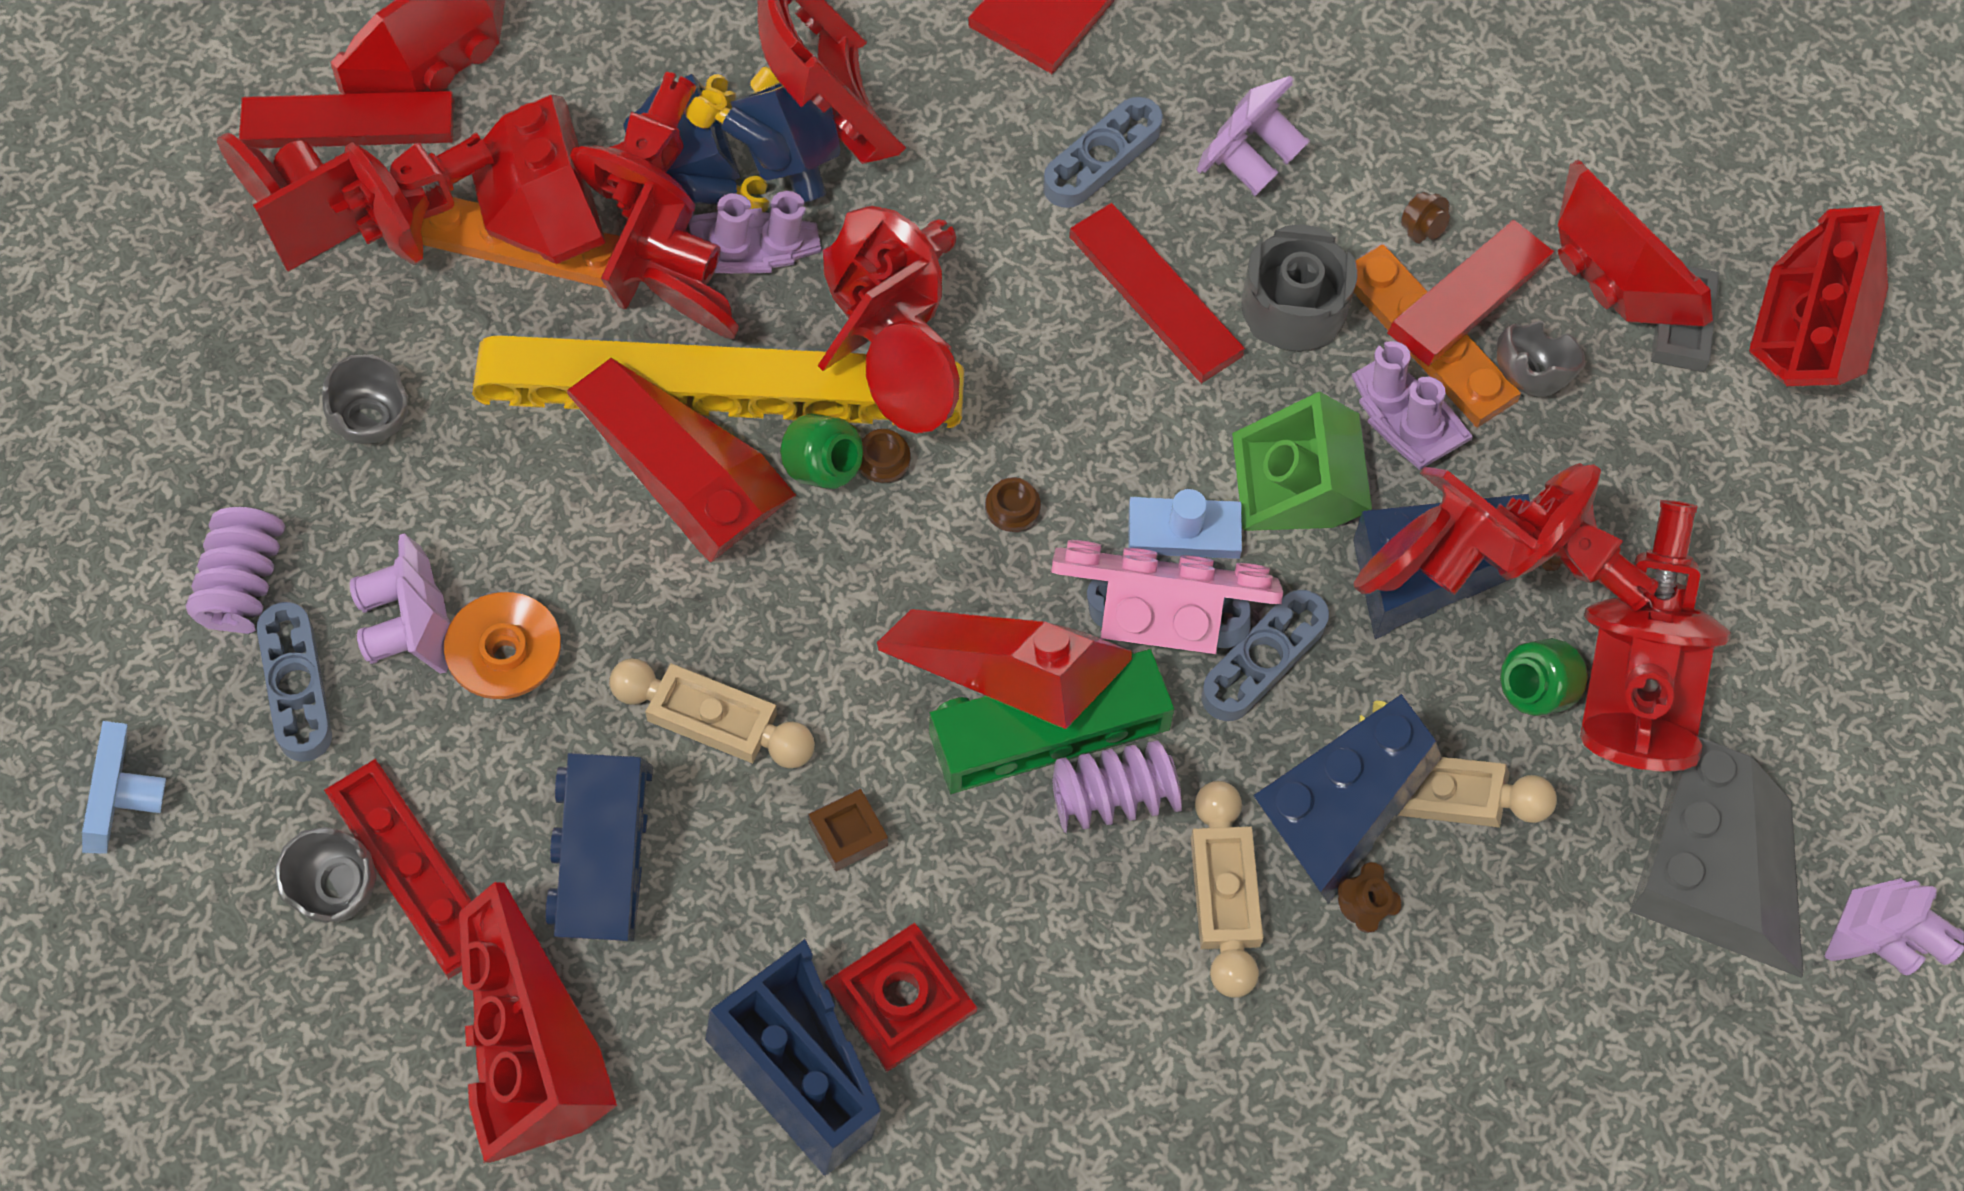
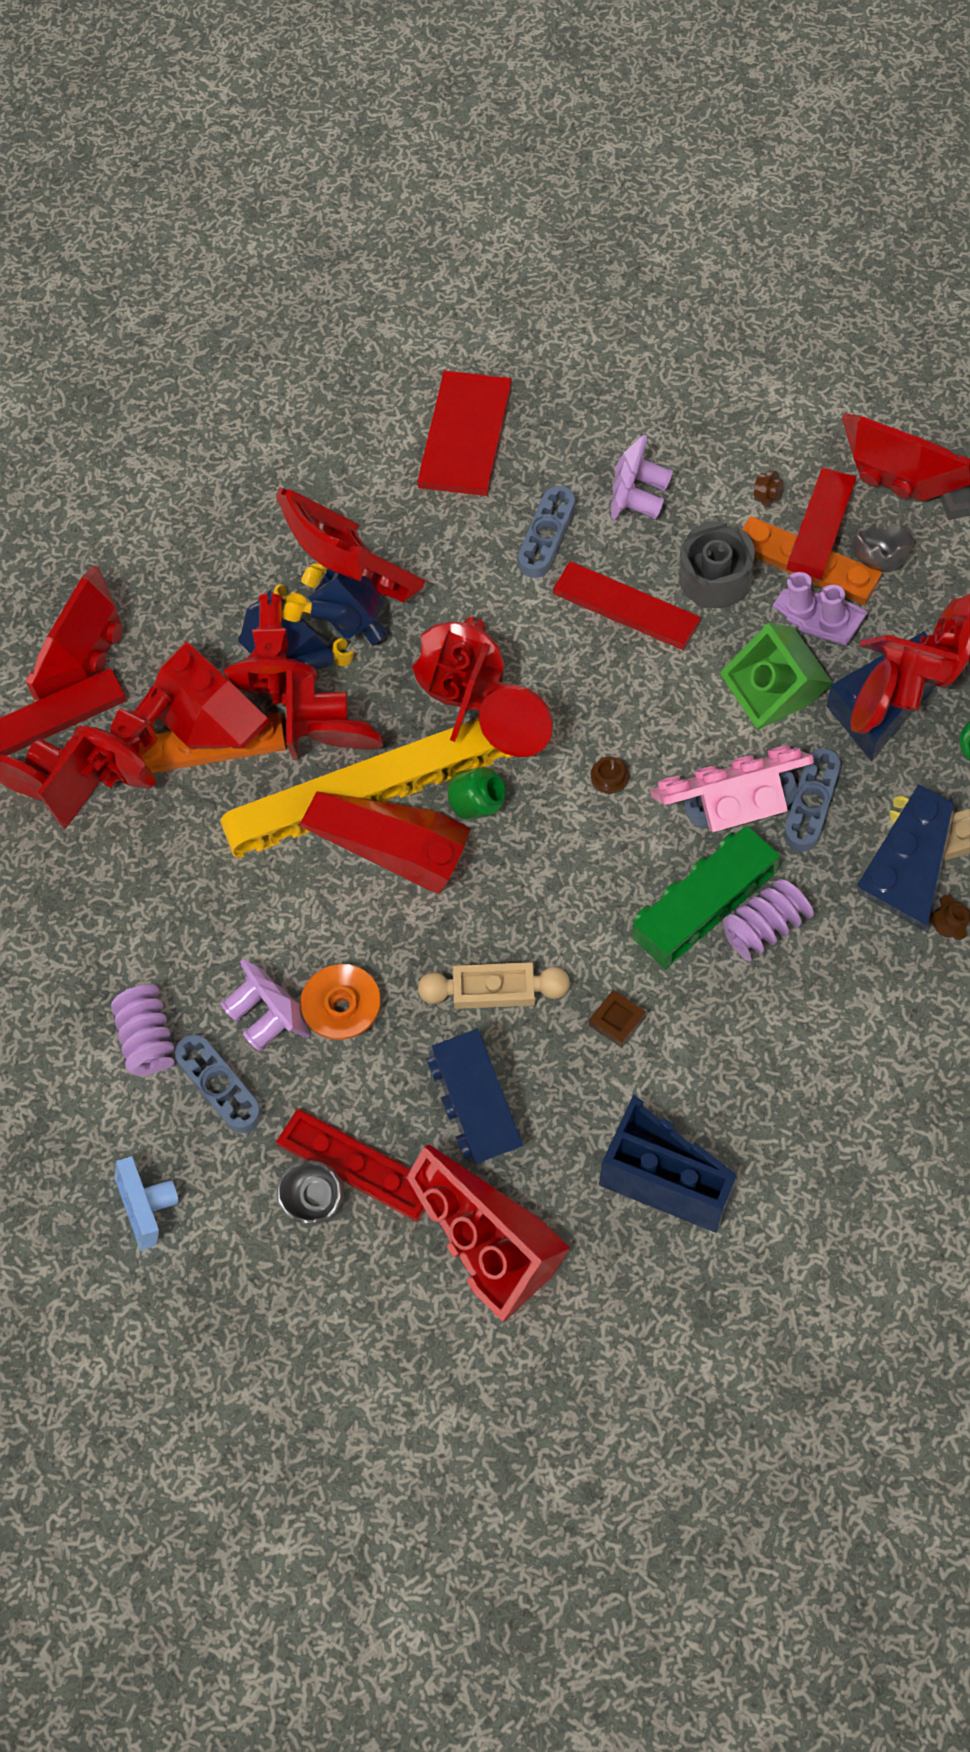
camera: 15 degrees left, 0 degrees up
(364, 384) = (163, 876): flat silver hair -> none
(755, 239) = (363, 676): lavender connector -> none
(884, 456) = (515, 778): reddish brown plate -> none
(897, 1031) = (704, 1127): red piece -> none
(1015, 661) = (668, 869): red wedge -> none
(1186, 526) = (722, 742): light blue tile -> none
(1226, 889) = (865, 951): tan plate -> none

